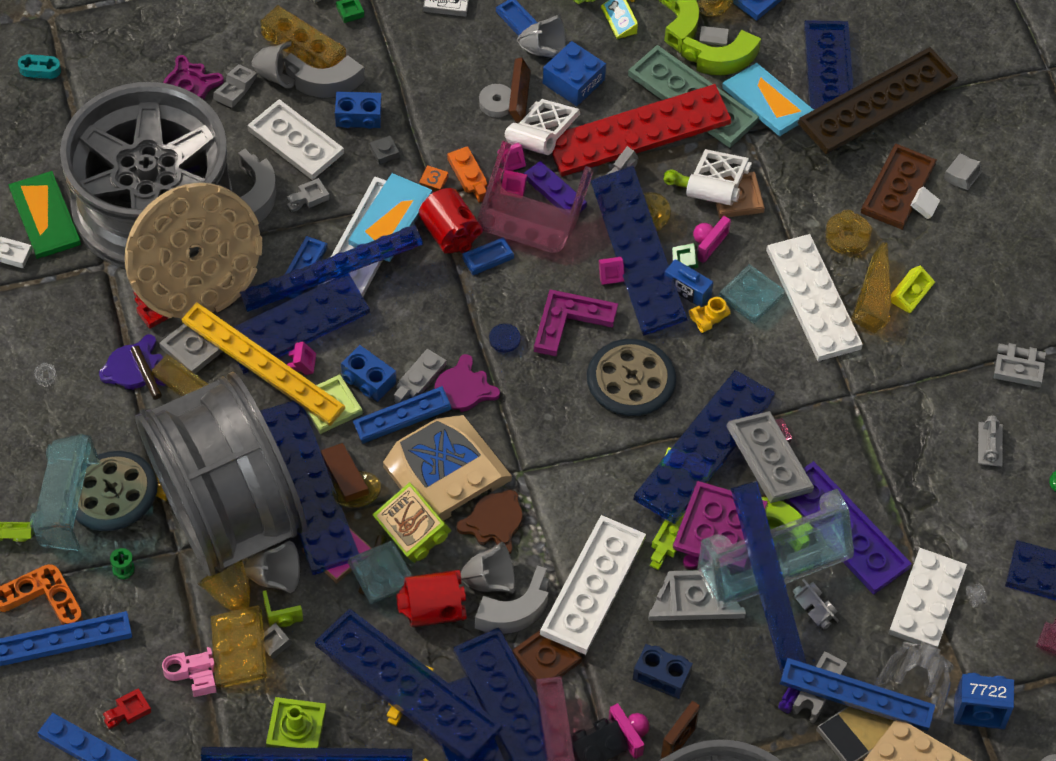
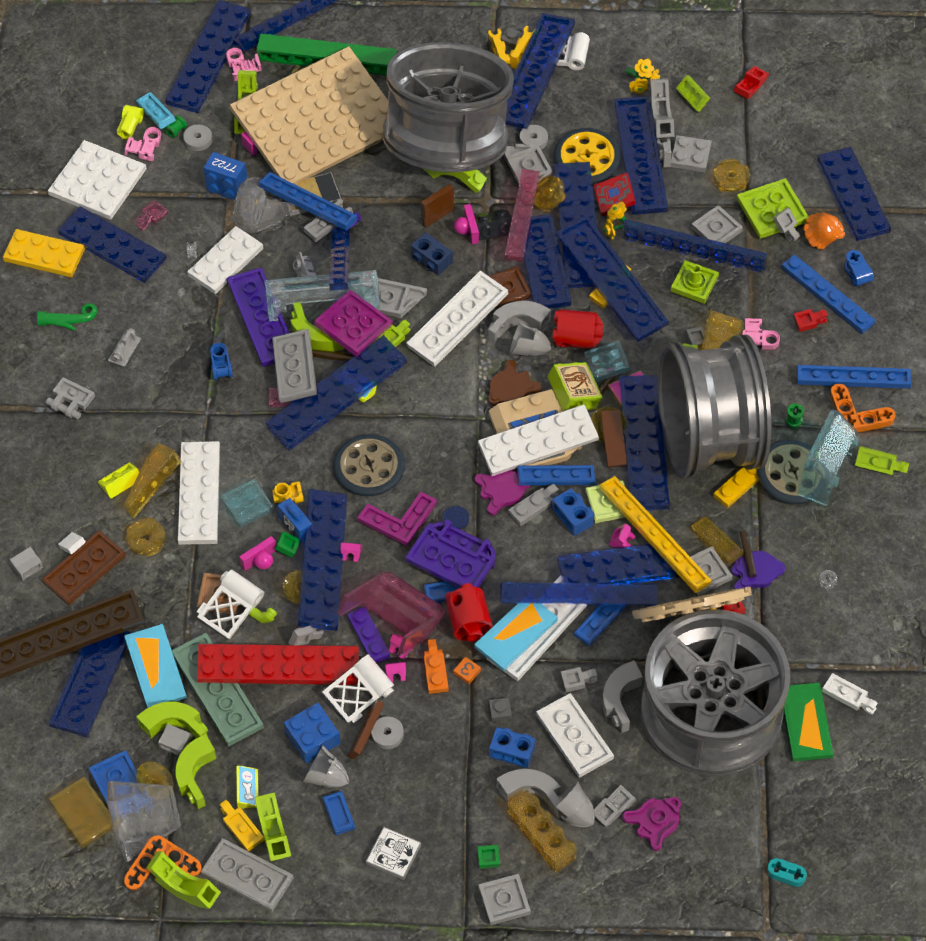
camera: 160 degrees left, 0 degrees up
(435, 440) = (538, 440): none -> white plate
(490, 287) = (452, 554): none -> dark purple plate
(861, 450) = (220, 364): none -> blue piece

